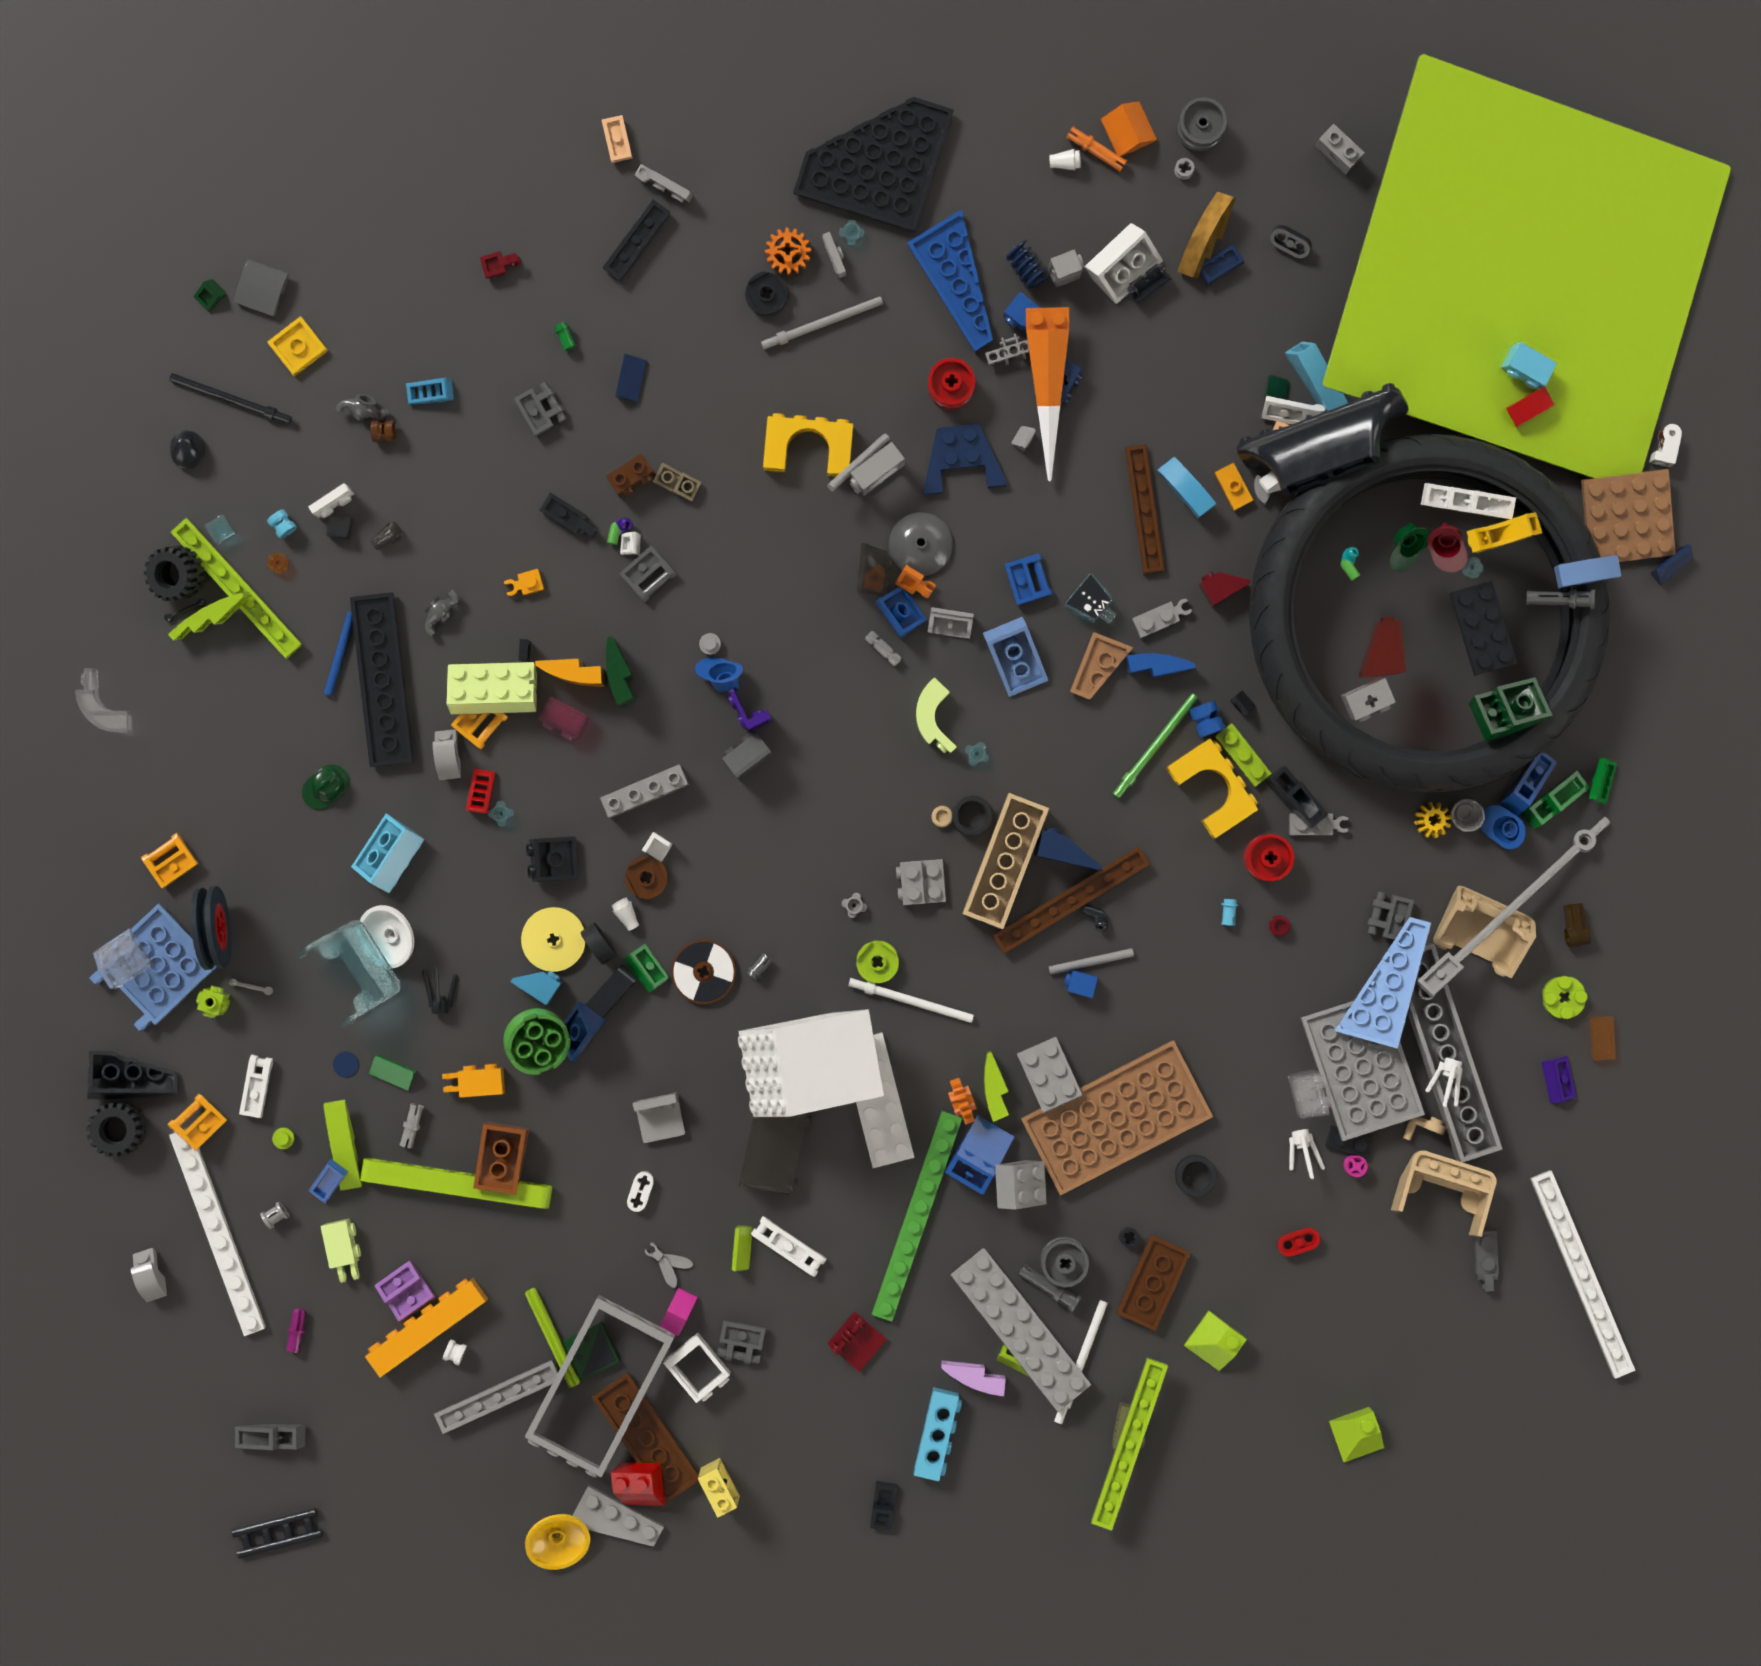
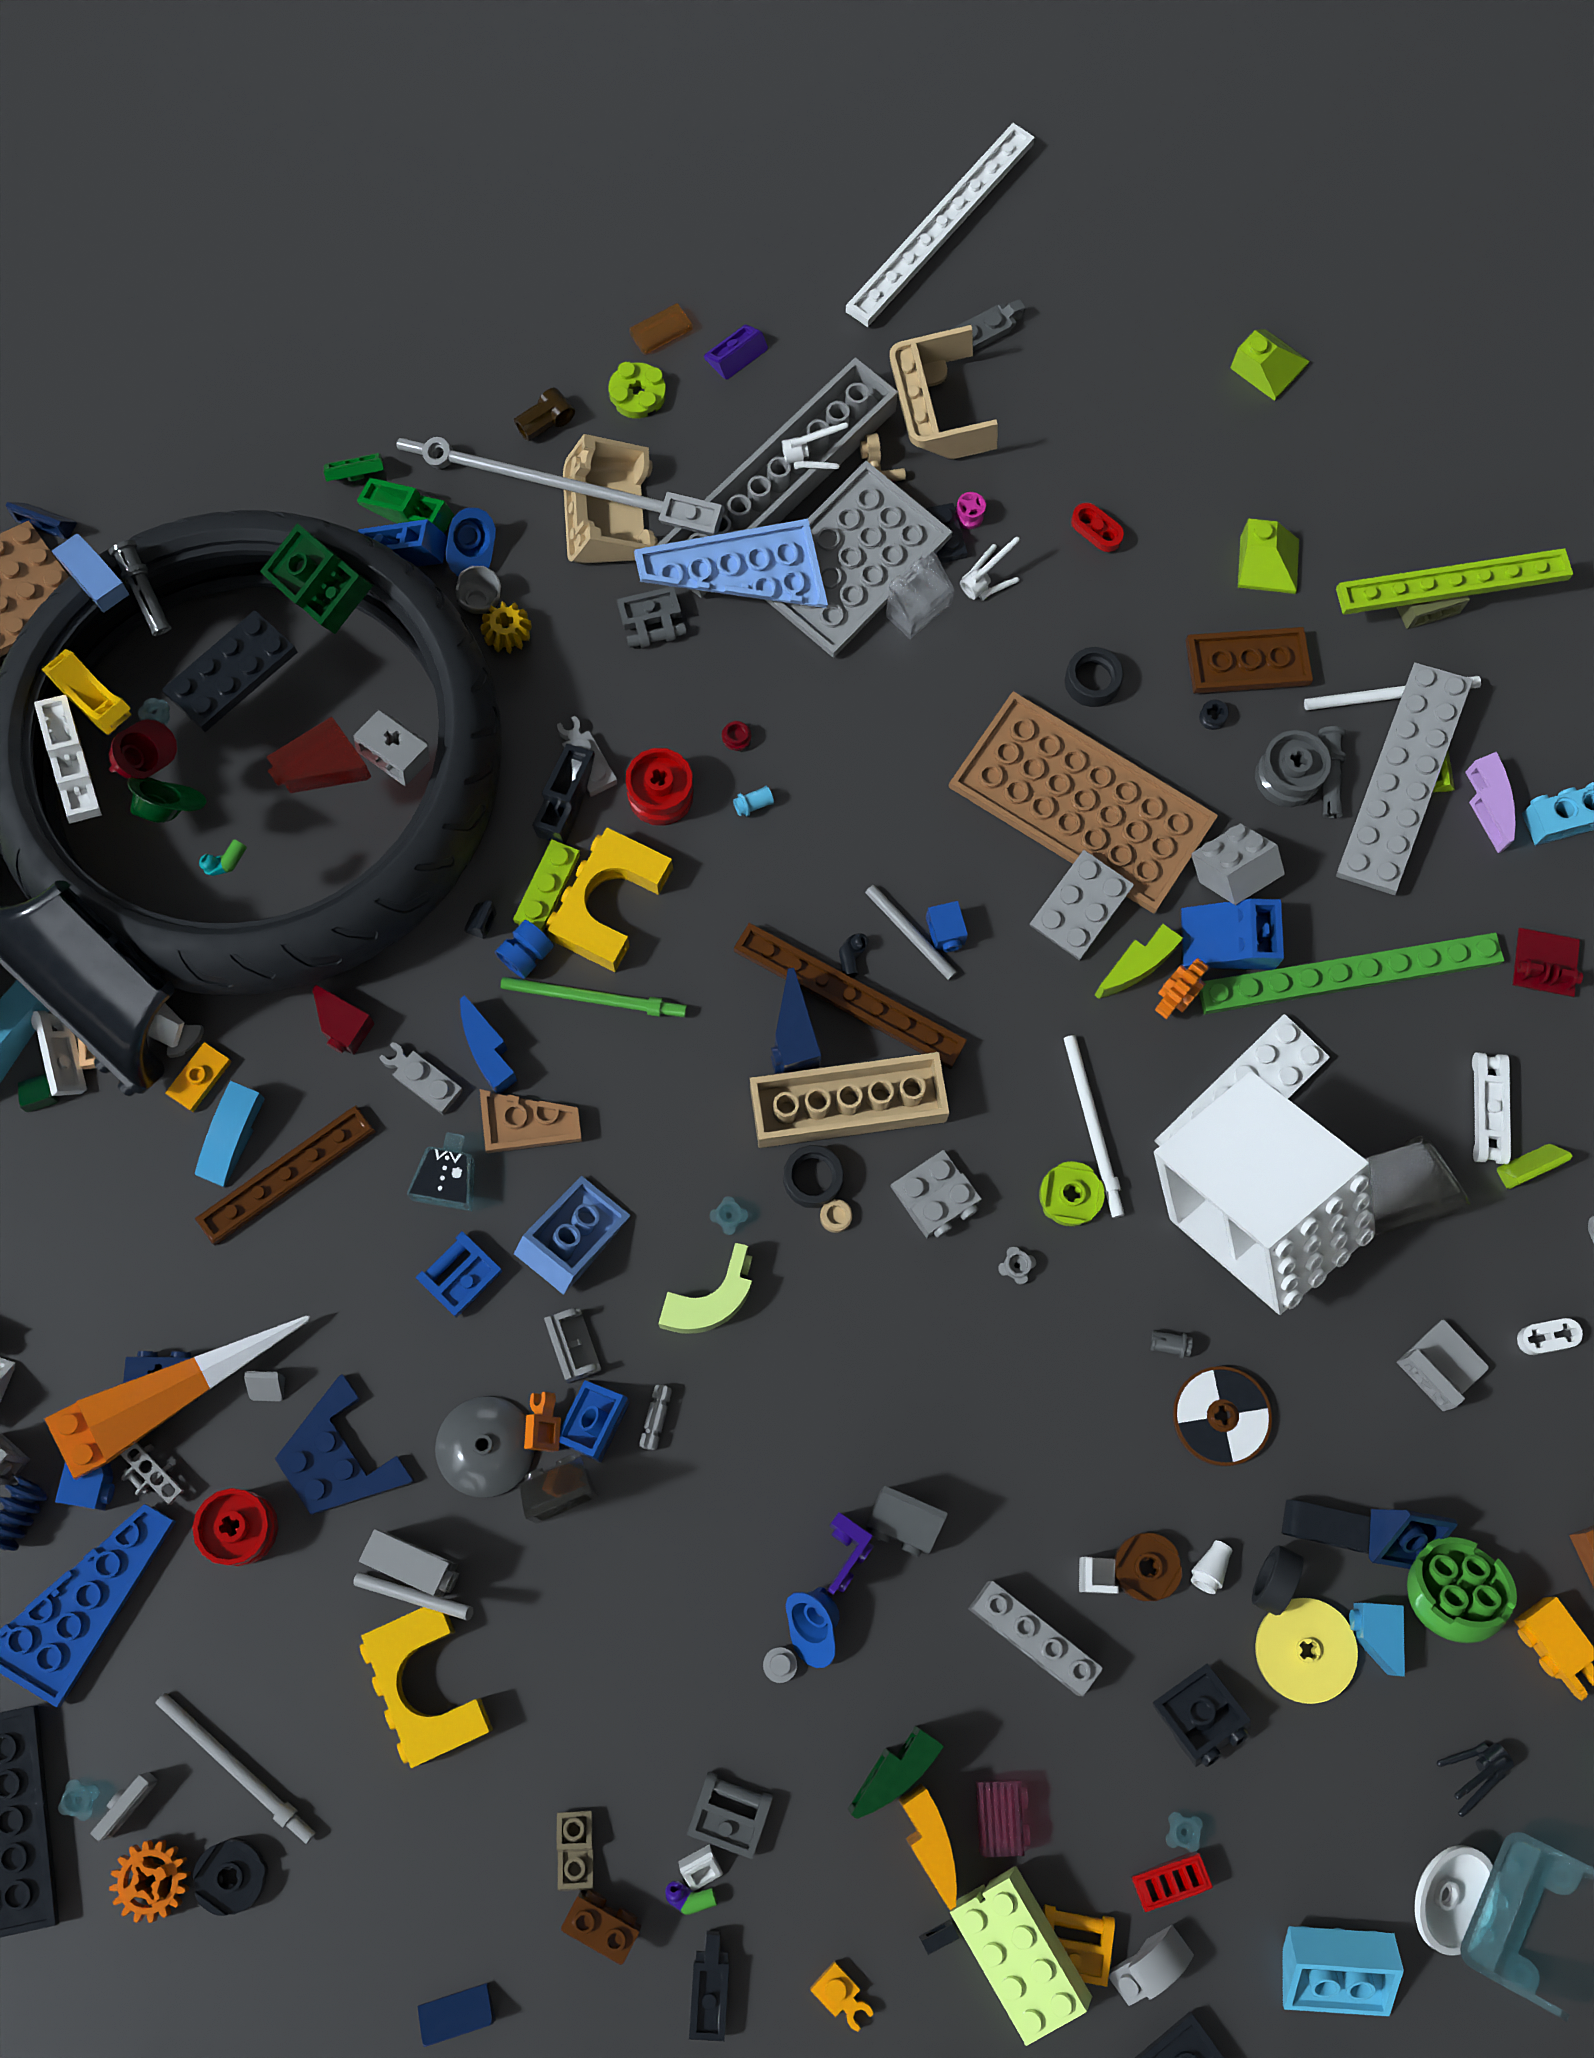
camera: 125 degrees left, 15 degrees down
(646, 968) = (1264, 1496): green slope -> none

